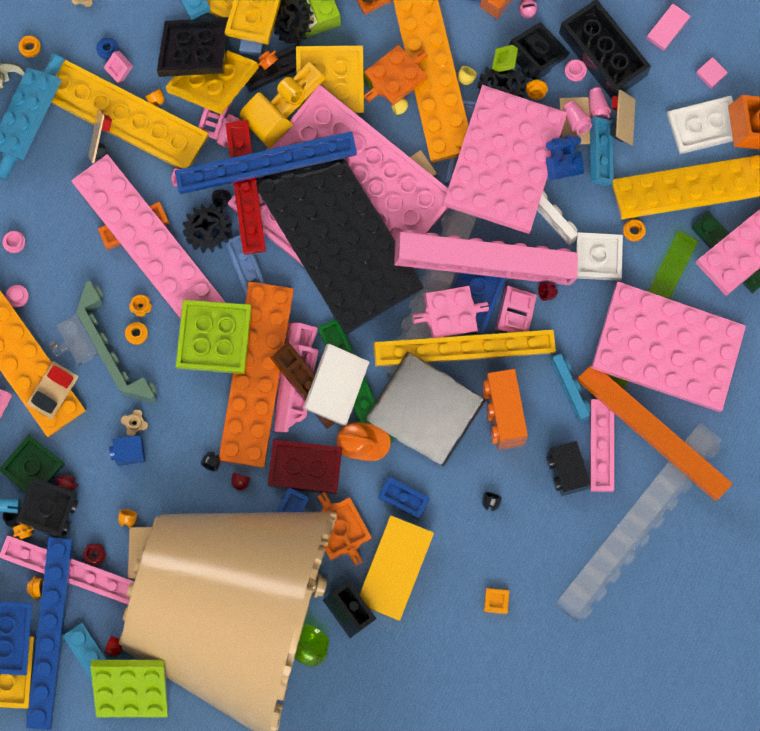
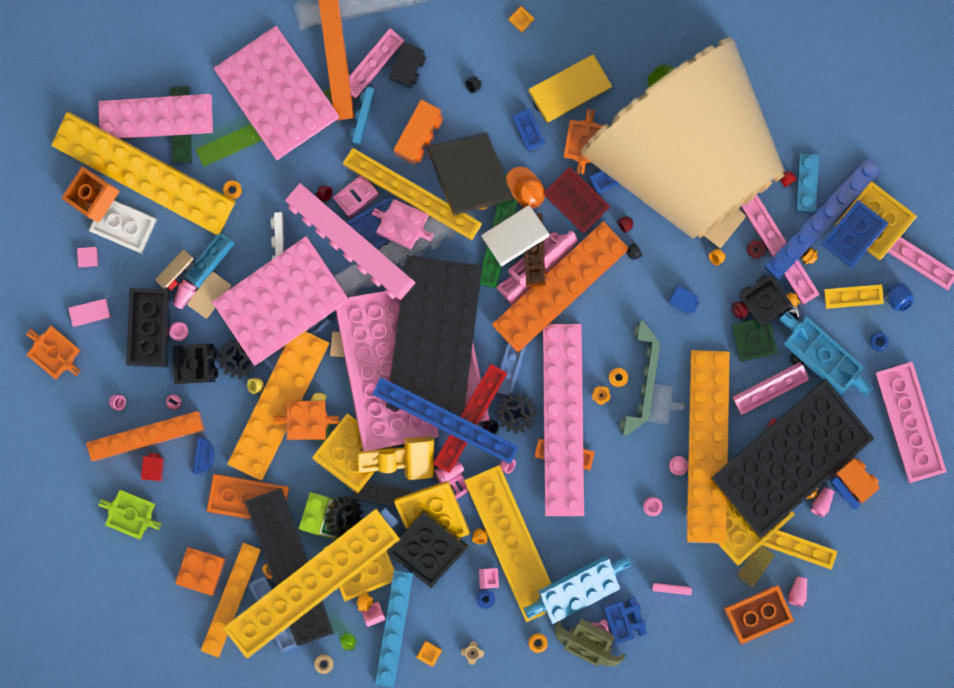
camera: 140 degrees left, 10 degrees up
(52, 390) = (703, 378): piece -> none
(97, 149) = (534, 539): tan piece -> none
(129, 688) = (799, 139): lime plate -> none
(132, 429) = (660, 318): tan plate -> none
(213, 336) = (571, 329): lime plate -> none
(267, 59) = (384, 499): orange plate -> none
(349, 609) = (620, 83): black brick -> none
(505, 58) = (223, 371): lime plate -> none
(536, 89) = (217, 337): light orange plate -> none
(565, 164) = (239, 270): blue plate -> none
(577, 118) = (208, 291): bright pink cone -> none
(599, 256) = (270, 189): white plate -> none

